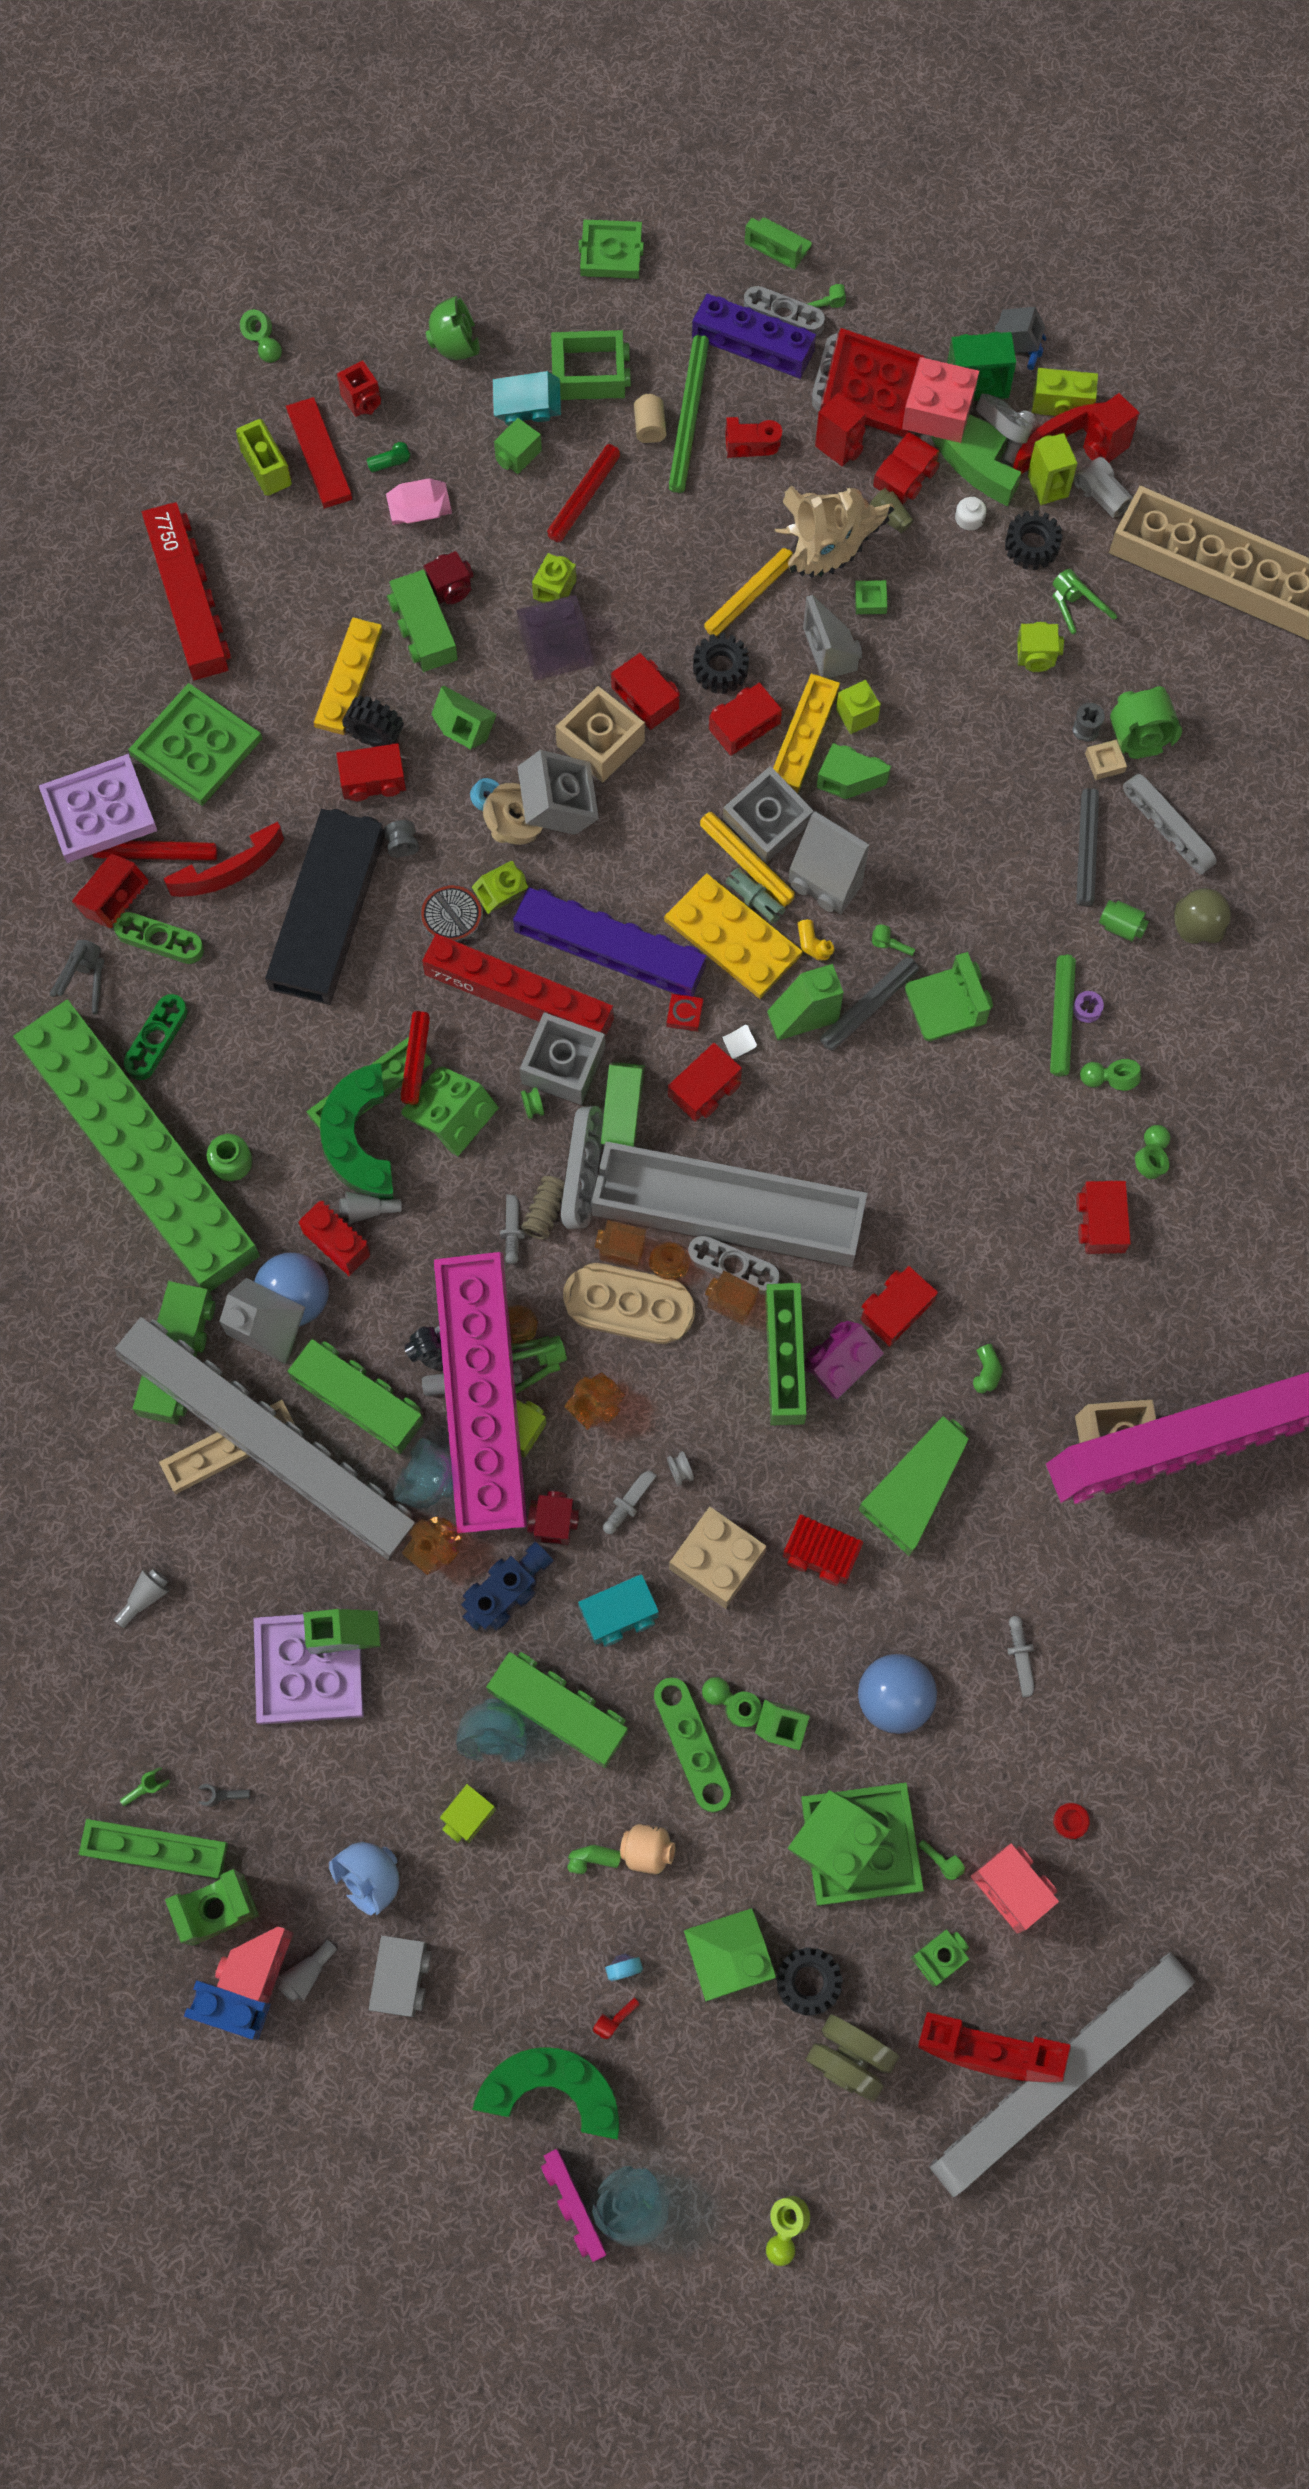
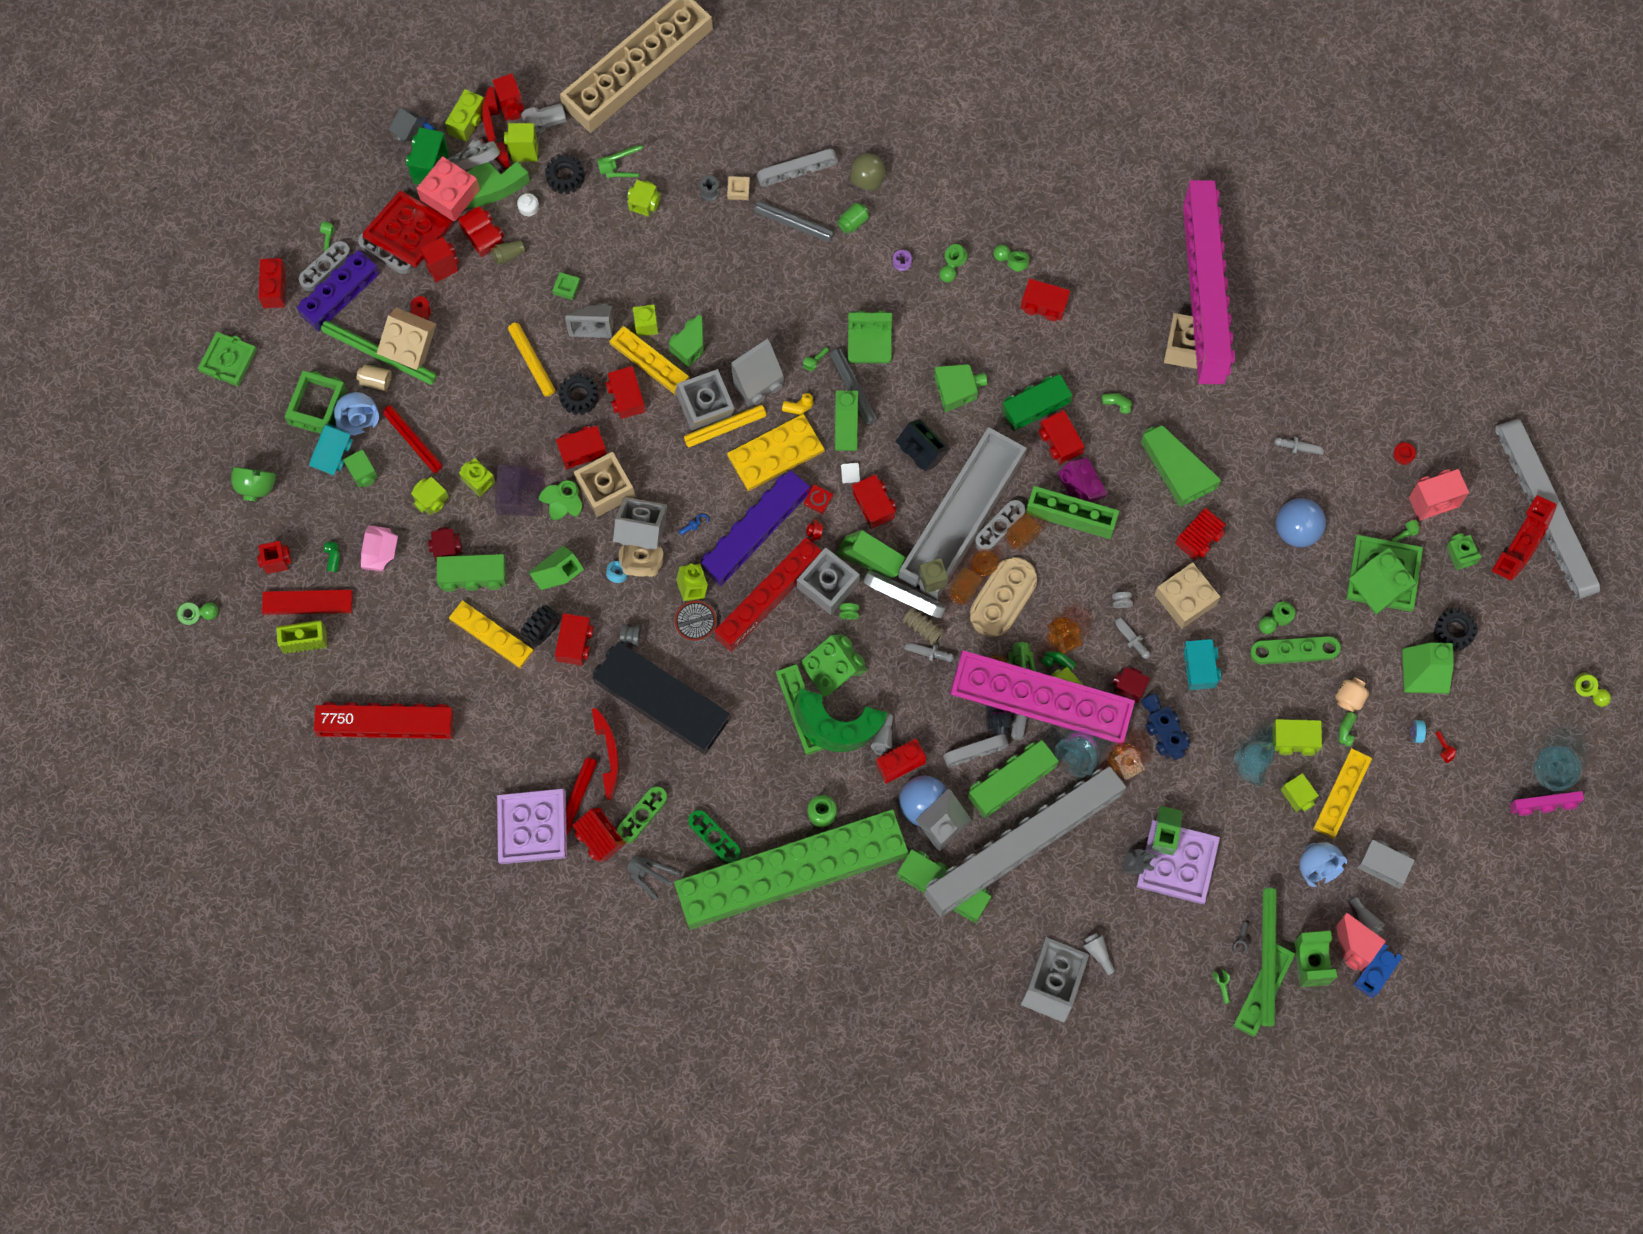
camera: 70 degrees left, 0 degrees up
(84, 1545) = (1055, 980): none -> light grey slope
(195, 744) = (505, 749): bright green plate -> none
(198, 1838) = (1268, 957): none -> bright green axle
(208, 1457) = (1021, 884): tan plate -> none
(287, 1607) = (1137, 861): none -> dark grey plate
(382, 1330) = (980, 748): none -> light grey beam
(415, 1057) = (794, 672): red axle -> none
(489, 1879) = (1342, 793): none -> yellow plate
(509, 536) = (429, 496): none -> lime brick
(552, 2069) = (1464, 793): green brick -> none
(554, 1784) = (1297, 736): none -> lime brick
(557, 1709) = (1252, 719): bright green brick -> none
(560, 1414) = (1057, 657): none -> green arm
(561, 695) = (560, 502): none -> bright green plate
(586, 405) = (355, 410): none -> light blue cylinder
(588, 866) = (693, 524): none -> blue hand
(606, 1183) = (933, 575): none -> olive brick
(634, 1020) = (814, 530): none -> red plate
(711, 428) = (406, 338): none -> tan brick
(732, 258) = (272, 283): none -> red brick
(755, 895) = (753, 429): sand green pin -> none
(776, 242) = (271, 247): bright green panel -> none
(782, 1724) = (1302, 591): bright green brick -> none
(811, 1117) = (922, 445): none -> black brick
(830, 528) = (512, 293): tan piece -> none
(849, 2062) = (1512, 620): olive wheel -> none
(923, 1139) = (957, 385): none -> bright green torso
(940, 1254) = (1036, 402): none -> green brick
(1062, 1015) = (902, 276): bright green axle -> none
(1145, 722) = (725, 154): bright green brick -> none

